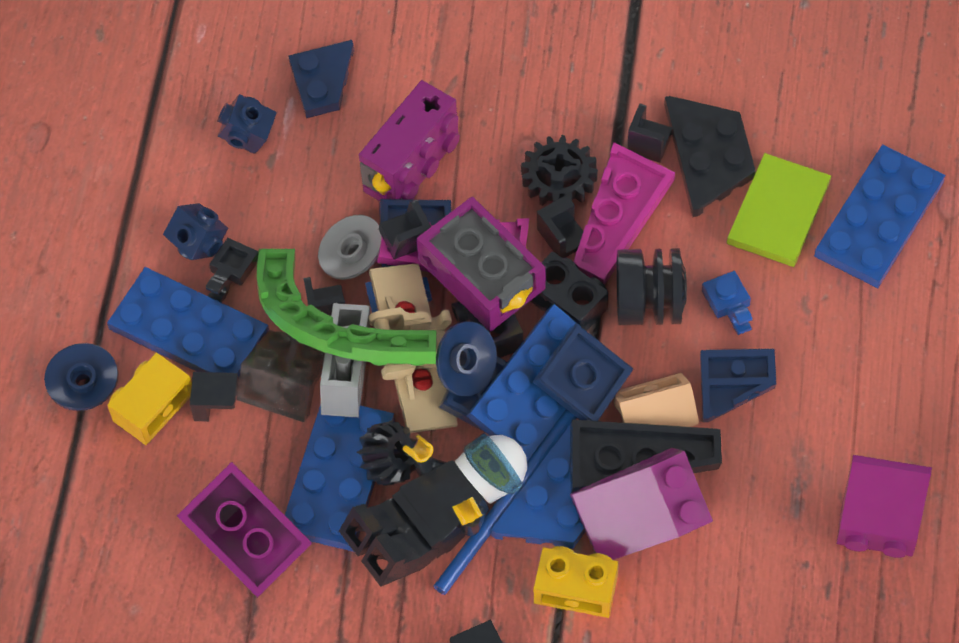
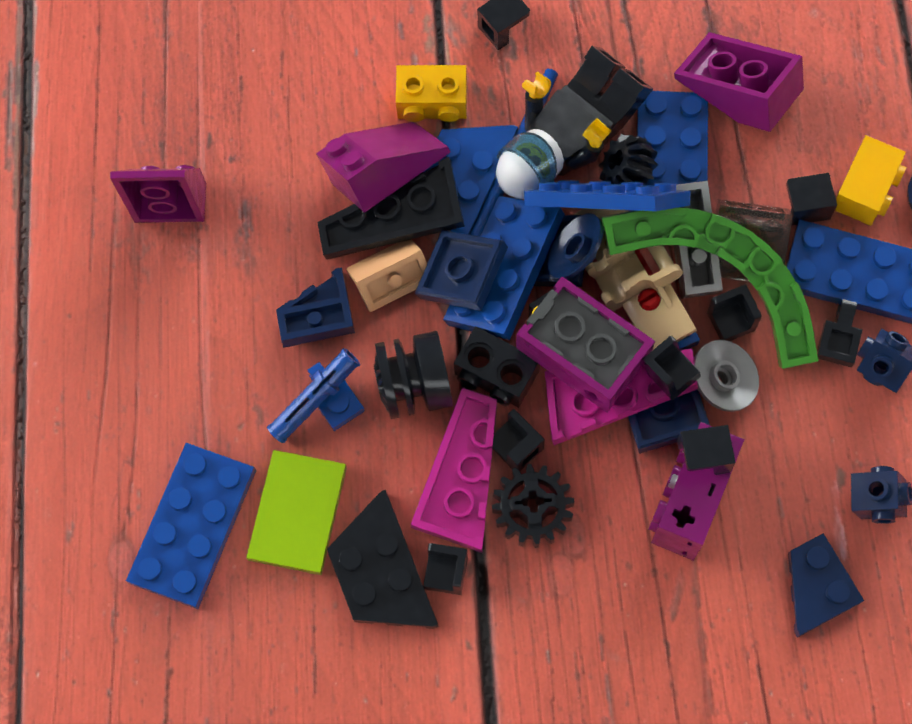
camera: 170 degrees right, 10 degrees up
(398, 136) = (708, 449): none -> black panel
(424, 386) = (607, 195): none -> blue plate
(737, 294) = (323, 385): none -> blue pin

